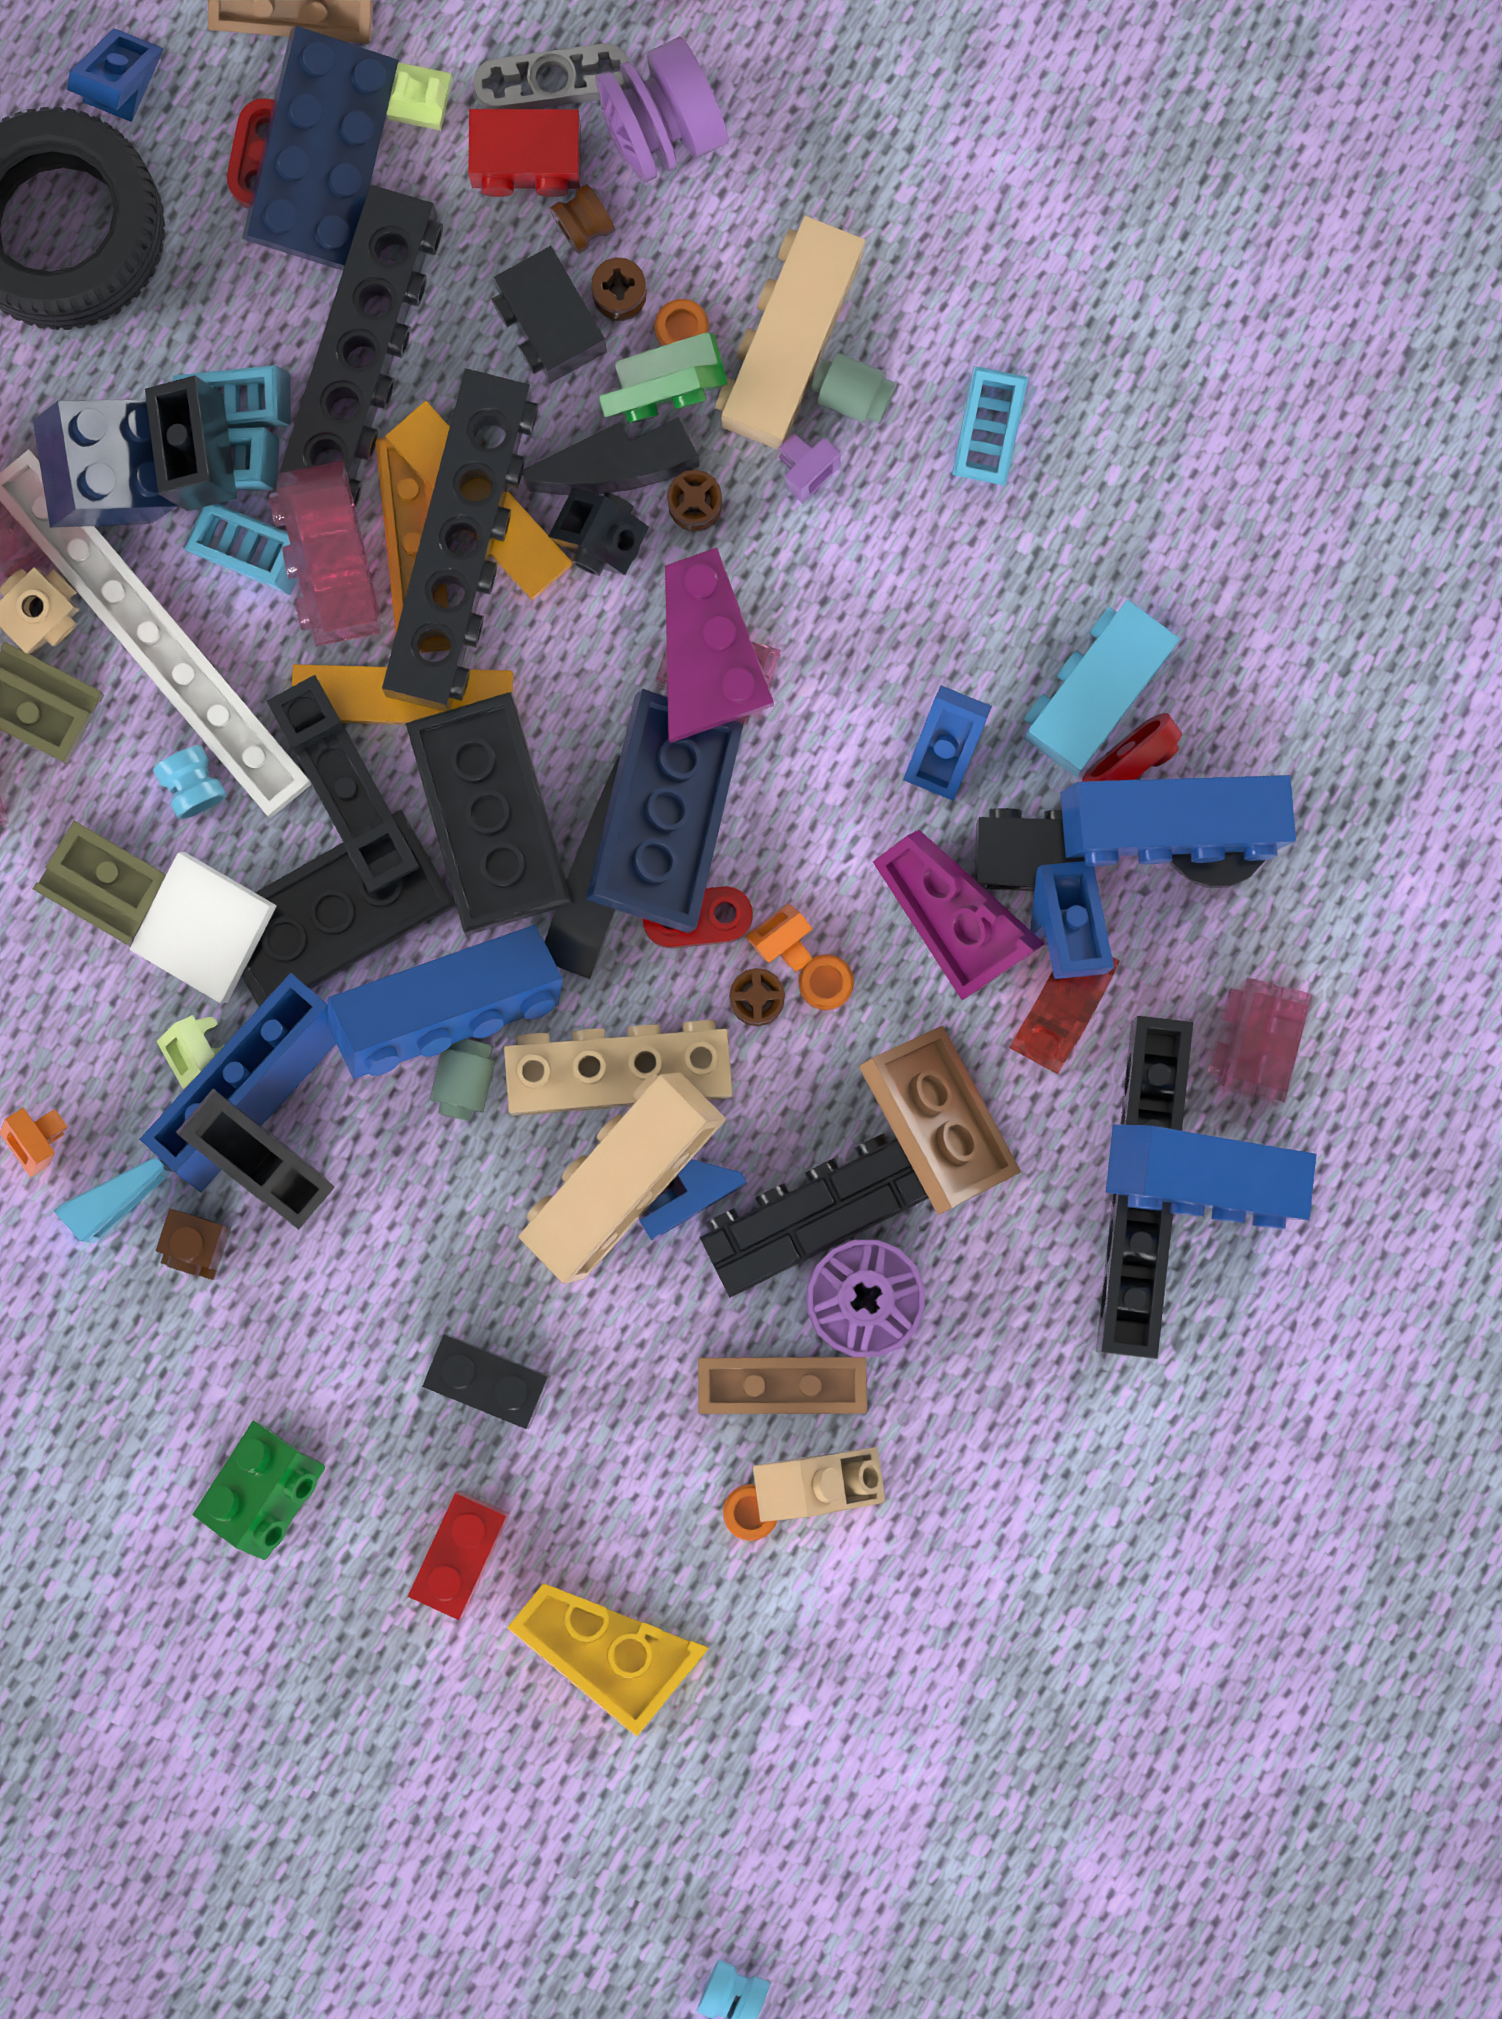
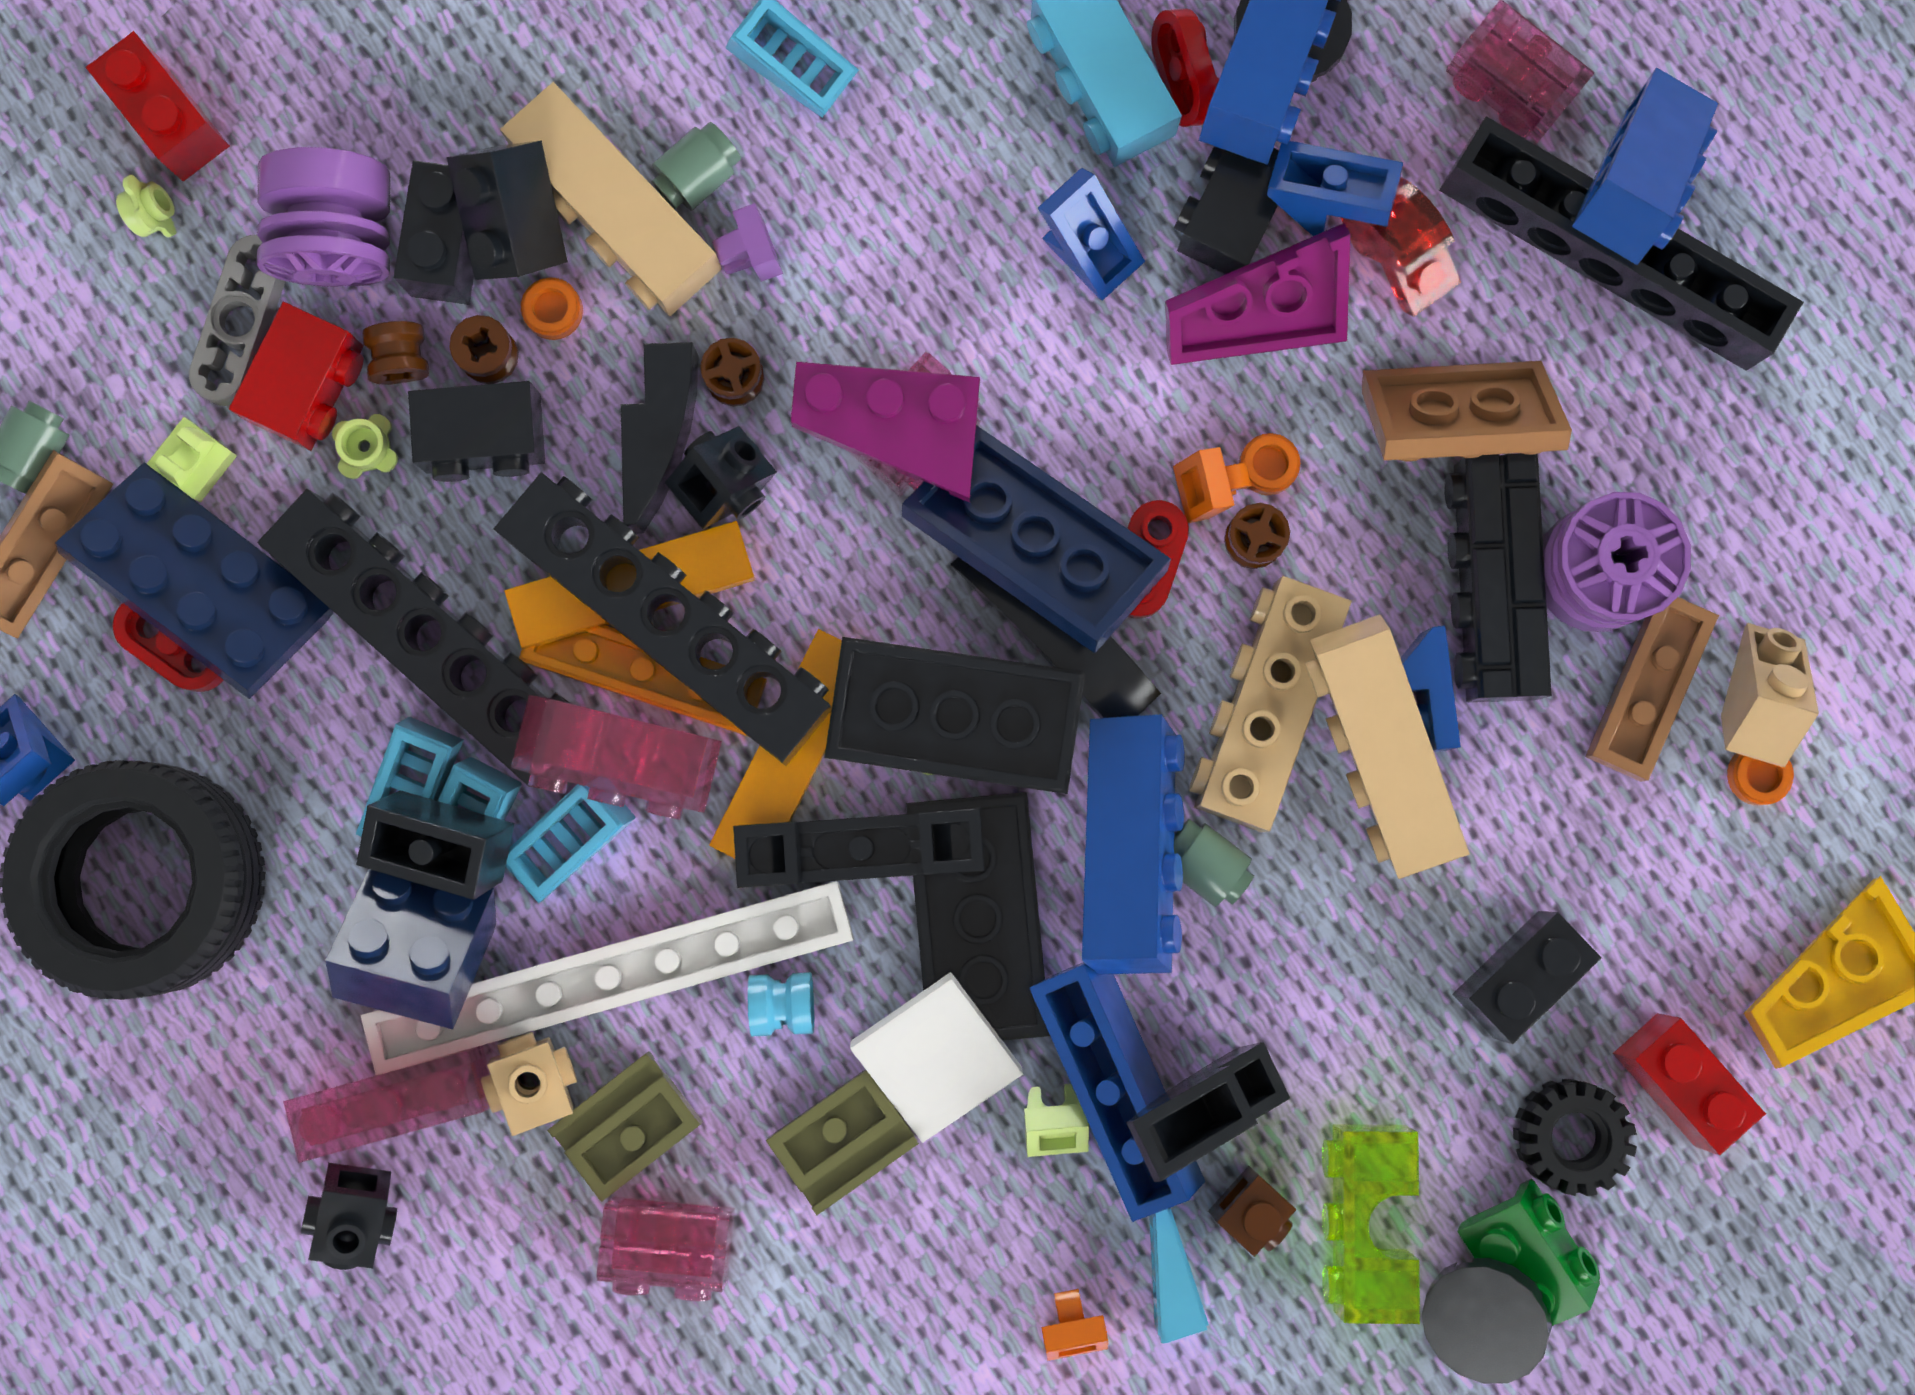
camera: 70 degrees left, 0 degrees up
(181, 1360) = (1367, 1168): none -> clear neon green arch
(189, 1471) = (1486, 1321): none -> black tile
(339, 1487) = (1610, 1143): none -> black tyre
(494, 214) = (350, 435): none -> yellowish green plate
(666, 375) = (593, 340): bracket -> none
(698, 208) = (432, 242): none -> black brick
(737, 254) = (507, 210): none -> black brick

